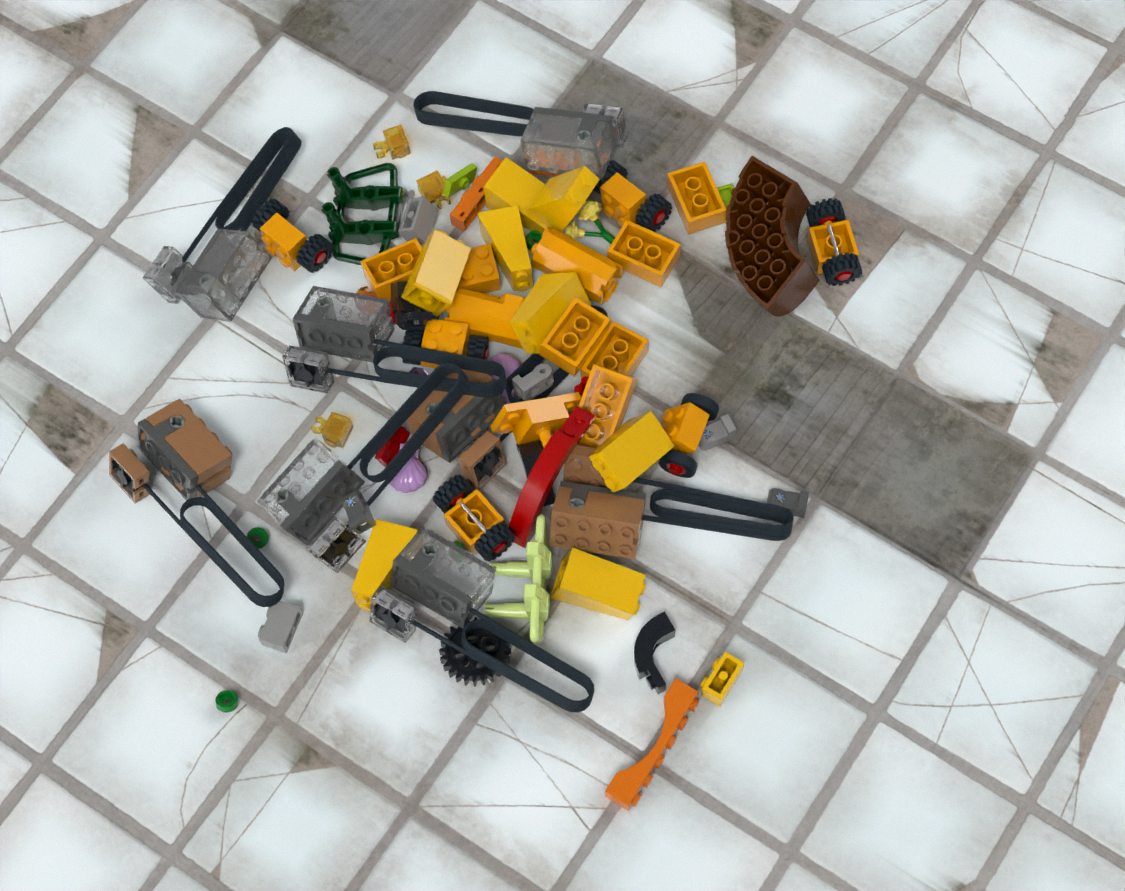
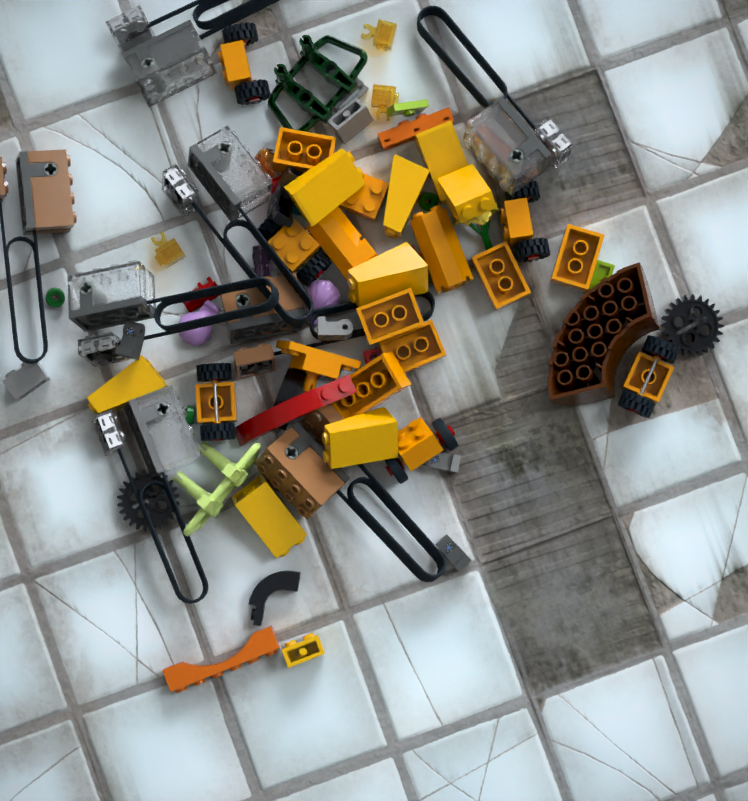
camera: 35 degrees right, 20 degrees up
(852, 192) = (700, 340): none -> black gear

